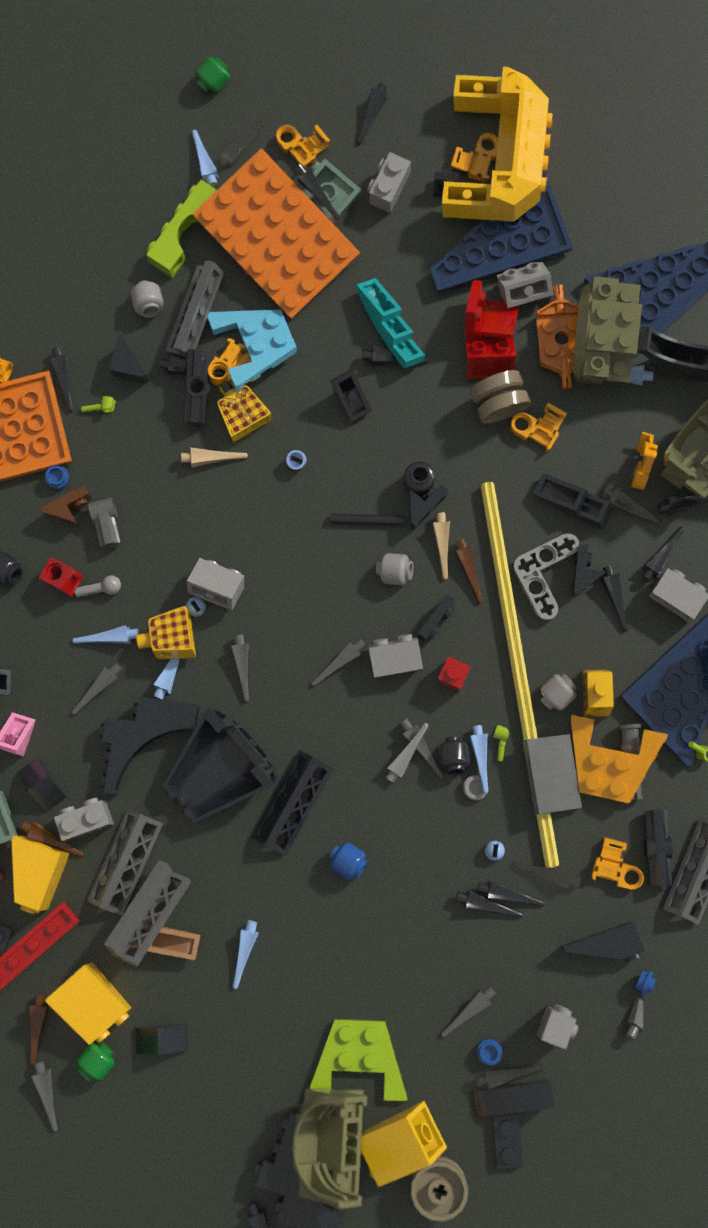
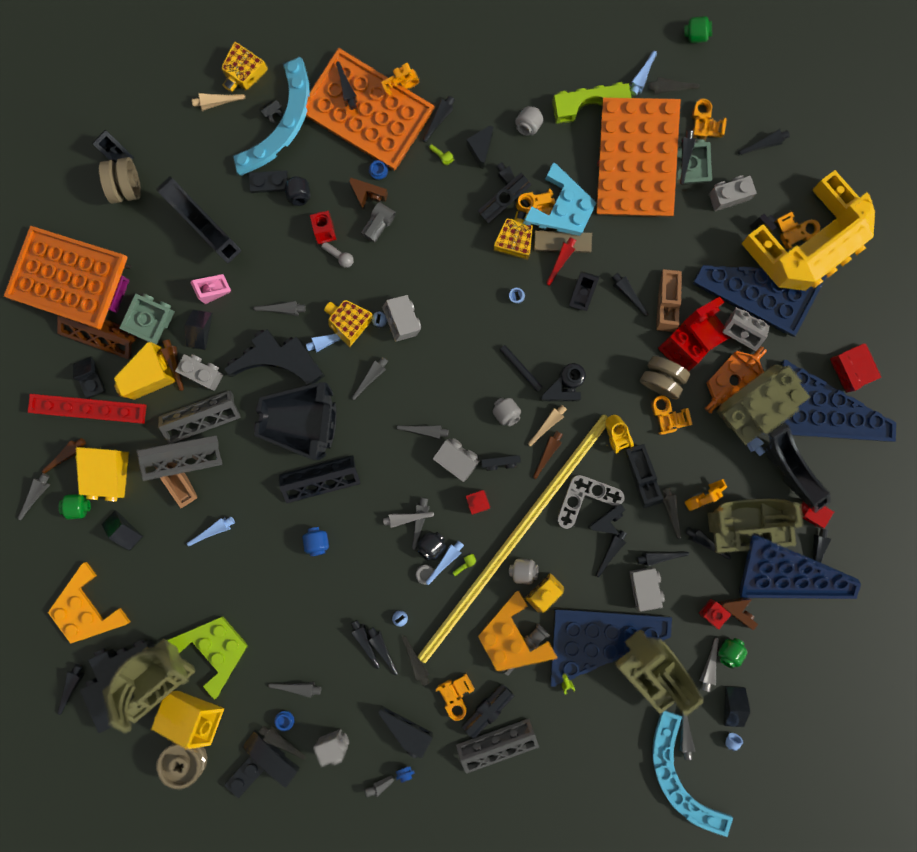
camera: 40 degrees right, 5 degrees up
(118, 635) = (322, 292): light blue piece -> none
(195, 309) = (549, 154): dark grey fence -> none
(198, 1159) = (76, 613): none -> light orange wing
(201, 457) = (467, 240): tan piece -> none
(287, 373) = (553, 241): none -> dark tan tile
(299, 379) = (565, 252): none -> red piece
(386, 318) = (647, 273): teal slope -> none
(433, 328) = (669, 300): none -> medium nougat slope
(515, 489) = (619, 436): none -> yellow piece
(552, 774) = (473, 611): dark grey tile -> none
(652, 222) = (855, 368): none -> red bracket

